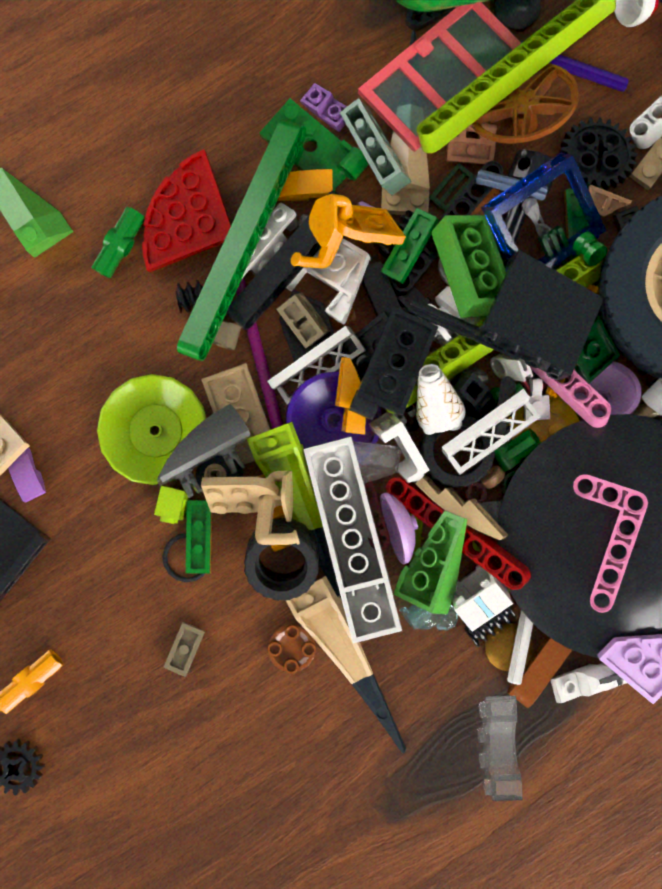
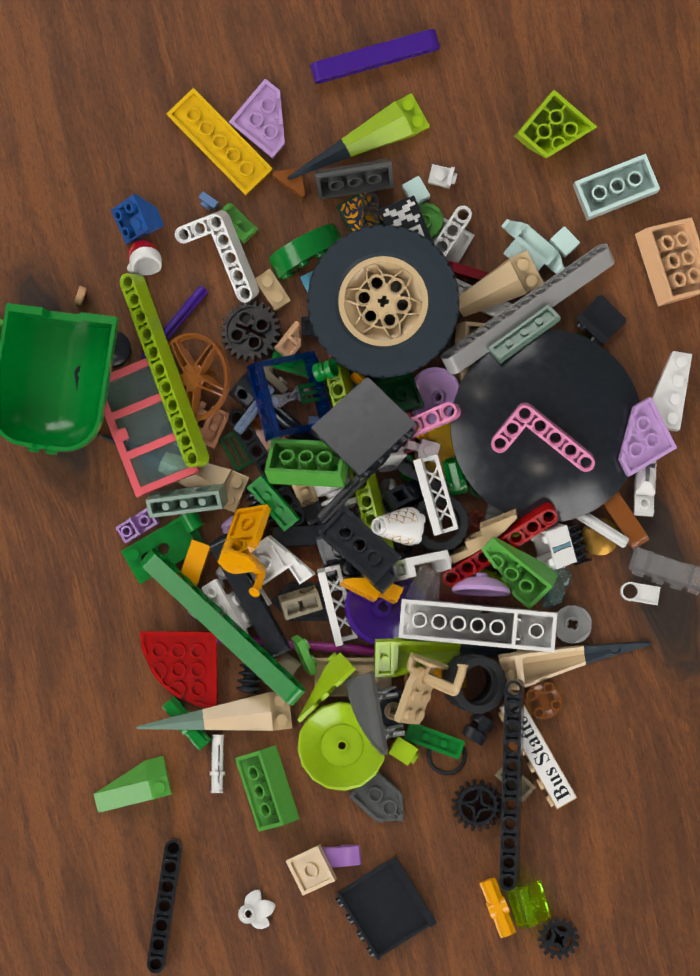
camera: 65 degrees left, 0 degrees up
(43, 718) = (529, 904): none -> clear neon green bracket
(56, 303) = (217, 764): none -> white pin
(74, 362) = (267, 788): none -> bright green slope
(107, 497) = (379, 799): none -> dark grey tile
(141, 625) = (460, 801): none -> black gear
(153, 309) = (253, 713): none -> tan plate
(166, 652) = (507, 793): none -> black beam
(227, 664) = (542, 761): none -> white brick
(230, 389) = (332, 676): none -> lime wedge
(230, 583) = (478, 728): none -> black wheel
(238, 356) = (307, 660): none -> bright green plate
(395, 665) = (583, 624): none -> light grey plate
(433, 281) = (305, 494): none -> tan plate
(460, 725) = (645, 593): none -> white piece
(493, 477) = (468, 502): light nougat tile -> none
(557, 189) = (279, 383): none -> dark tan plate

